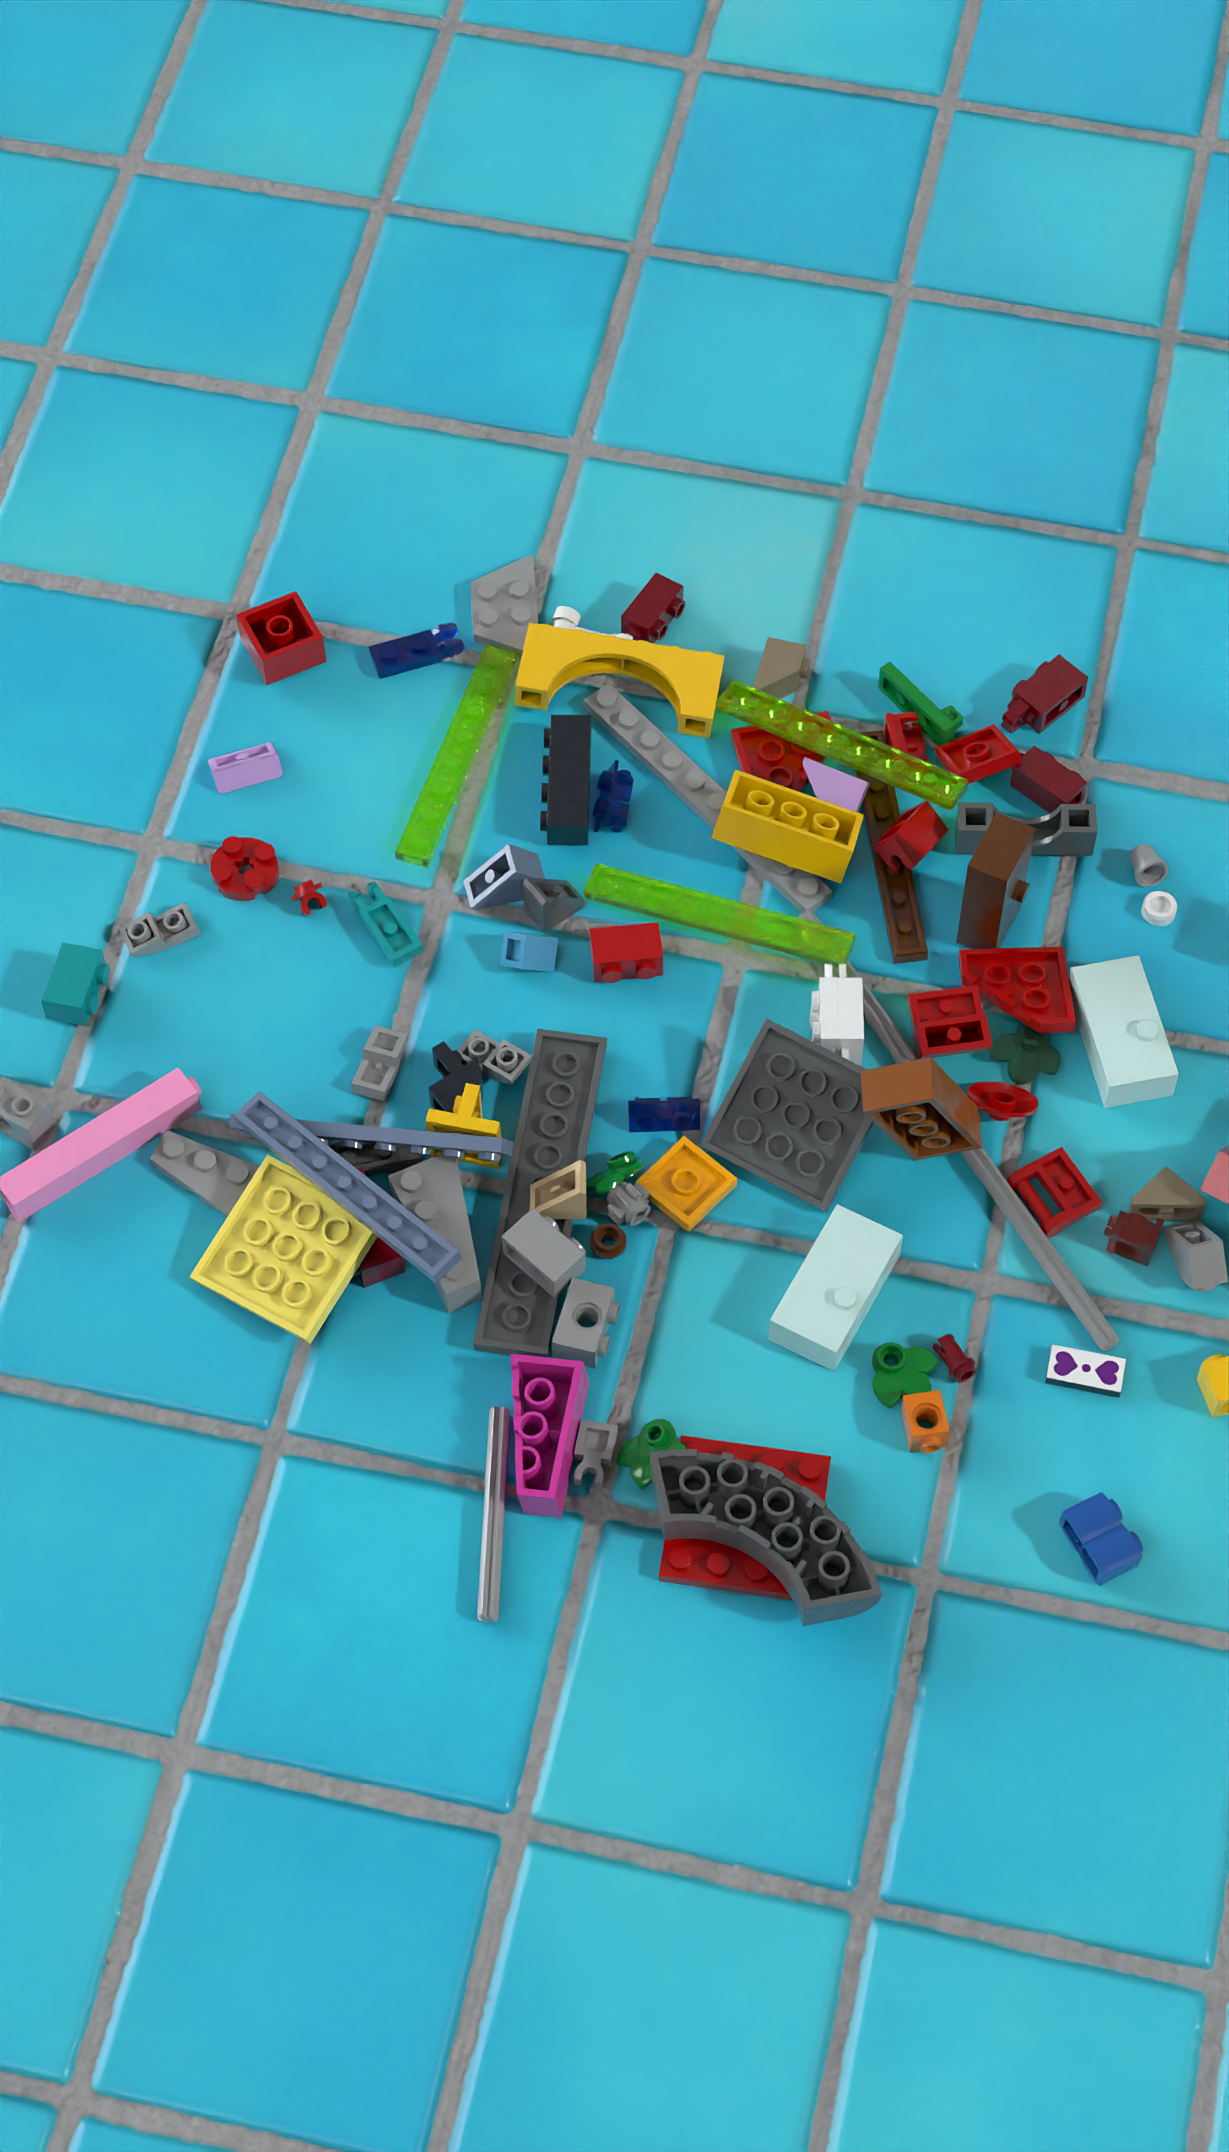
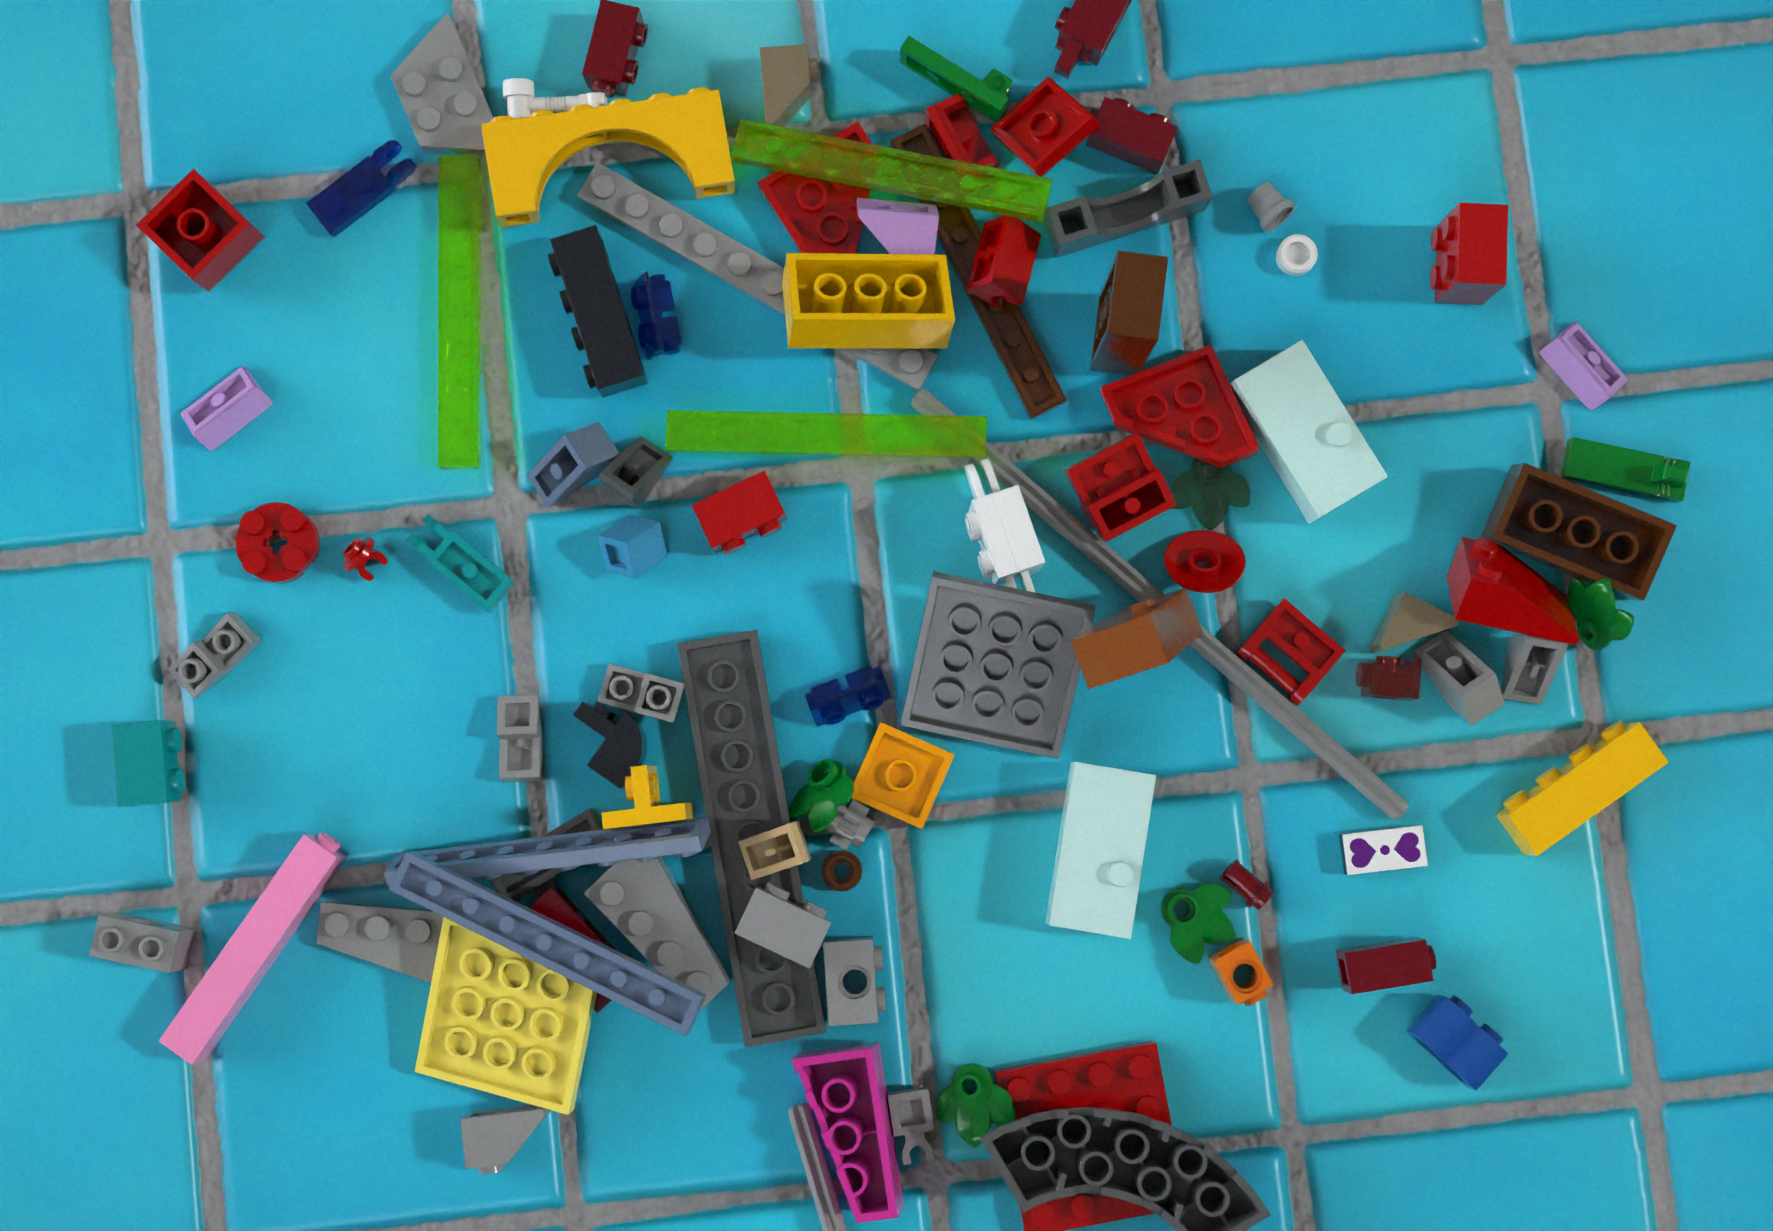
camera: 20 degrees left, 25 degrees up
(241, 1346) = (497, 1135): none -> light grey slope
(1055, 1452) = (1385, 965): none -> dark red brick

